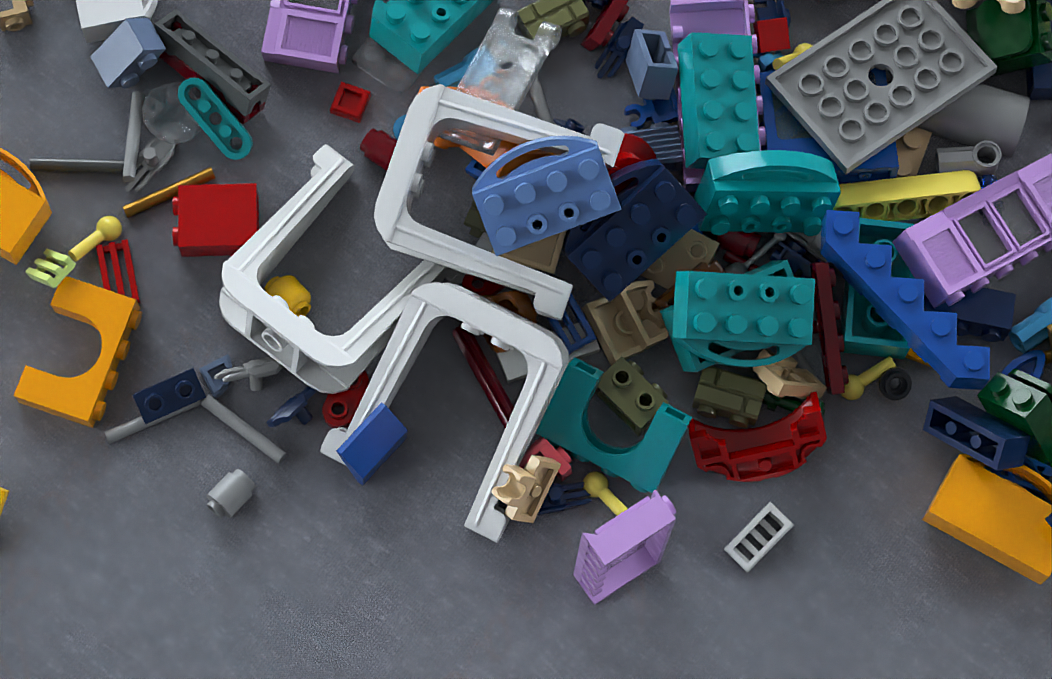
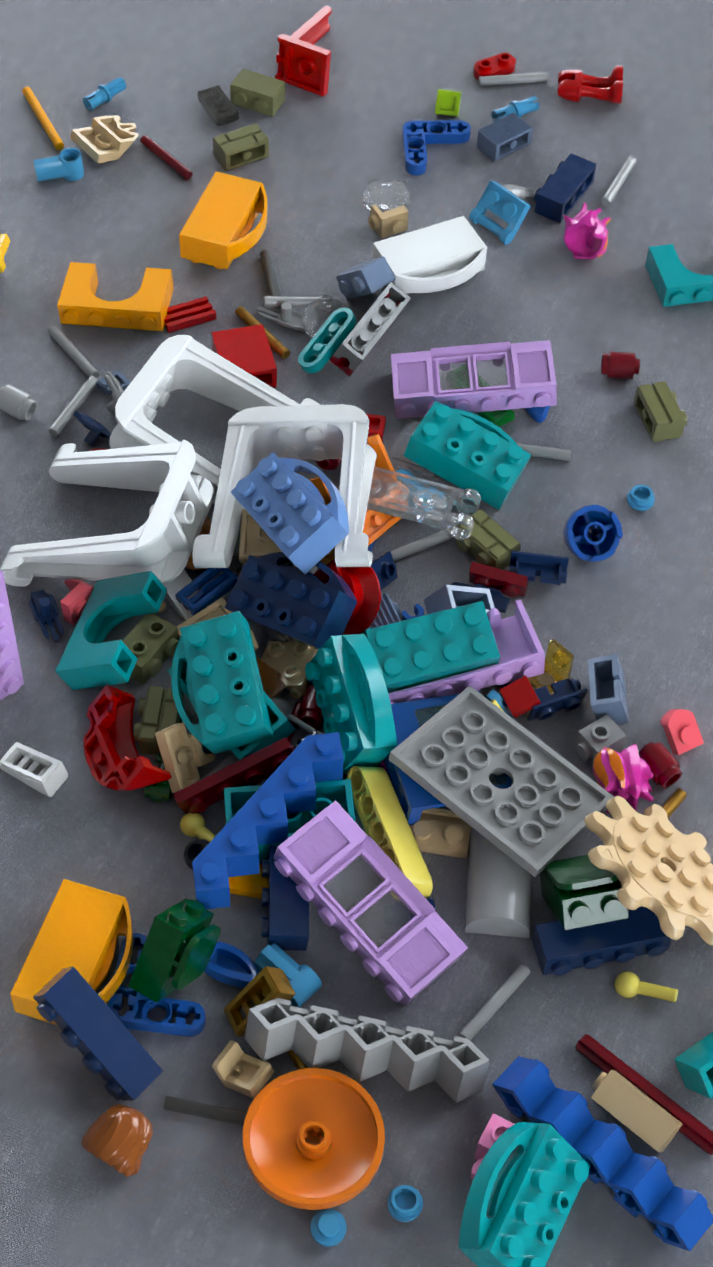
camera: 80 degrees right, 20 degrees down
(47, 264) = (177, 266): yellowish green tile -> none
(107, 229) = (223, 304): light yellow bar -> none
(169, 395) = (90, 352): dark blue hinge -> none
(292, 292) = (185, 408): yellow head -> none
(372, 443) = (65, 472): blue slope -> none
(527, 487) = (40, 574): tan plate -> none
(597, 485) = (58, 646): light yellow bar -> none
(967, 158) = (445, 886): light grey piece -> none
(976, 433) = (135, 914): dark blue brick -> none

